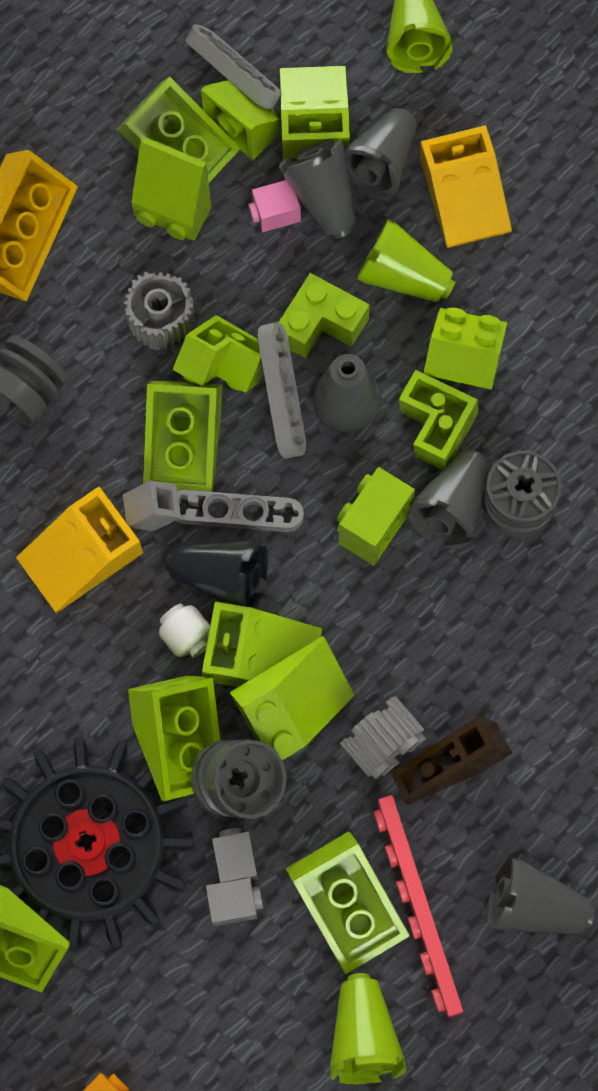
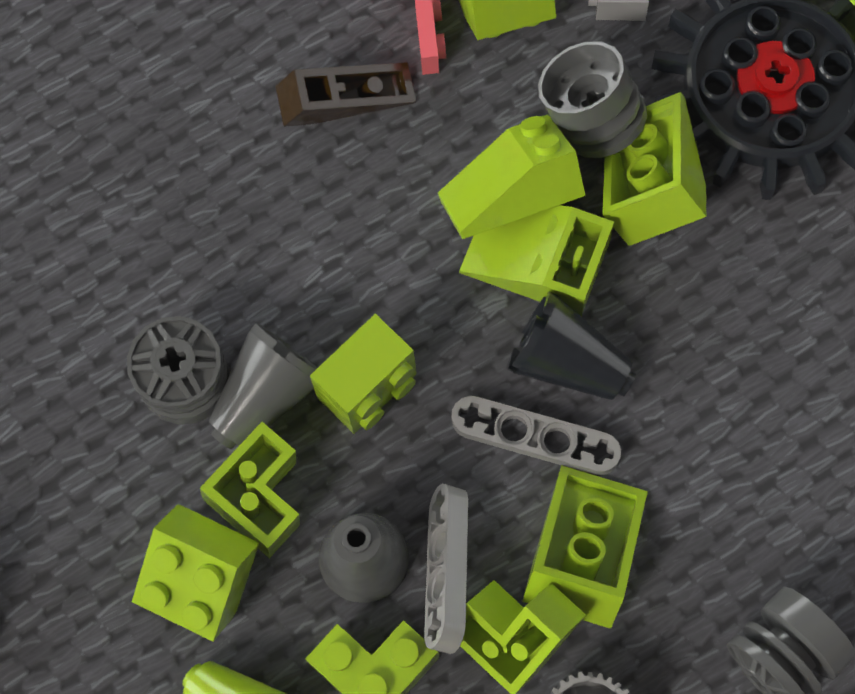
camera: 165 degrees left, 0 degrees up
(79, 550) = (738, 416): yellow slope -> none
(151, 505) = (641, 450): light grey brick -> none
(184, 630) = (624, 296): white head -> none
(234, 855) = (612, 25): light grey brick -> none
(383, 737) = (416, 118): light grey brick -> none

